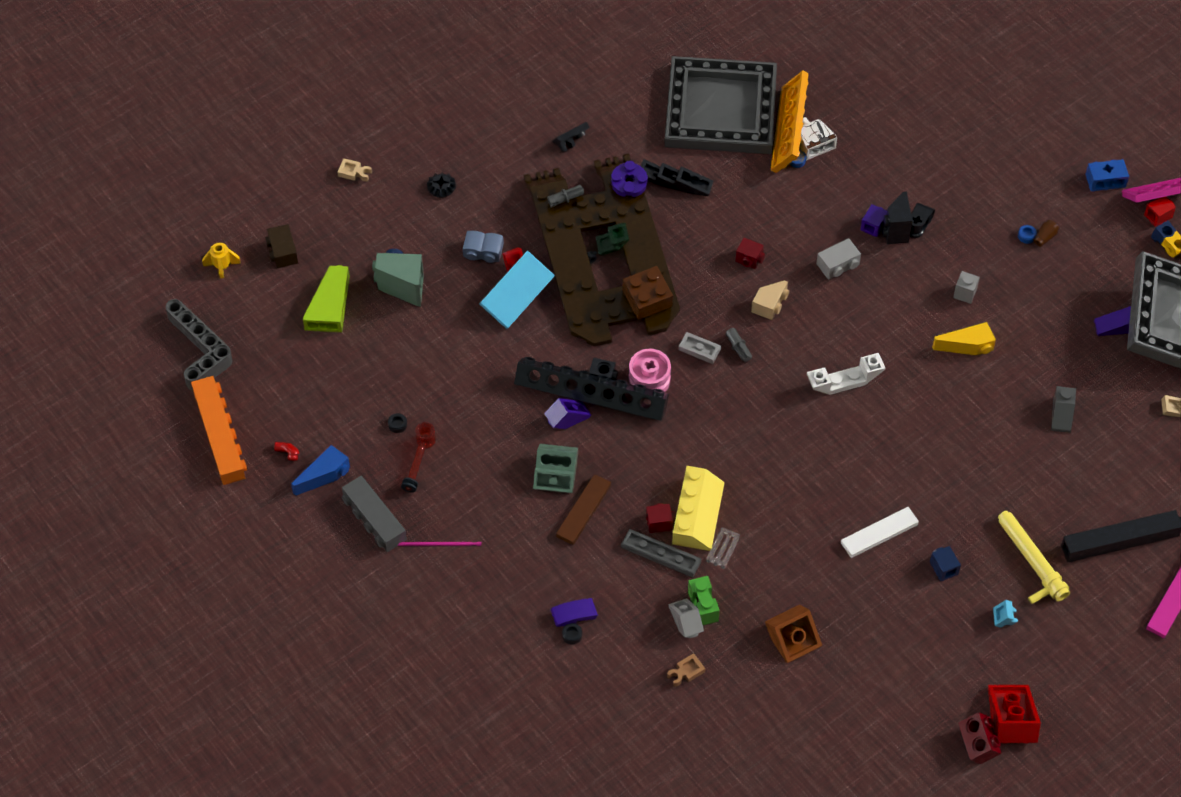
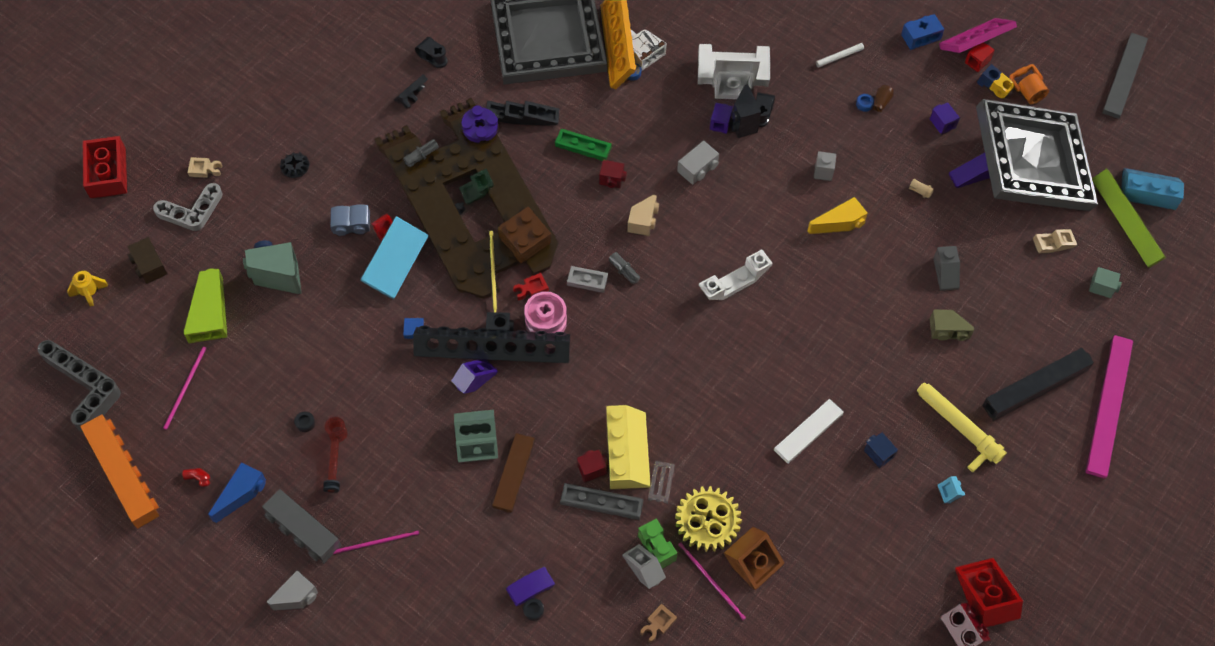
camera: 15 degrees left, 5 degrees up
(260, 151) = (104, 167): none -> red brick
(292, 370) = (184, 388): none -> dark pink piece
(332, 212) = (191, 215): none -> light grey beam
(353, 570) = (293, 594): none -> light grey slope
(516, 356) = (410, 325): none -> blue tile
(600, 102) = (432, 52): none -> black piece
(609, 321) = (493, 271): none -> light yellow piece
(643, 341) = (531, 286): none -> red plate
(728, 220) = (583, 144): none -> green plate
(748, 646) = (712, 581): none -> dark pink piece
(758, 589) = (702, 534): none -> light yellow gear
(895, 175) = (732, 71): none -> white piece
(1014, 182) = (839, 55): none -> white bar
(1049, 464) = (949, 325): none -> olive slope
(1063, 331) = (921, 188): none -> tan pin
(1104, 264) = (944, 118): none -> dark purple brick

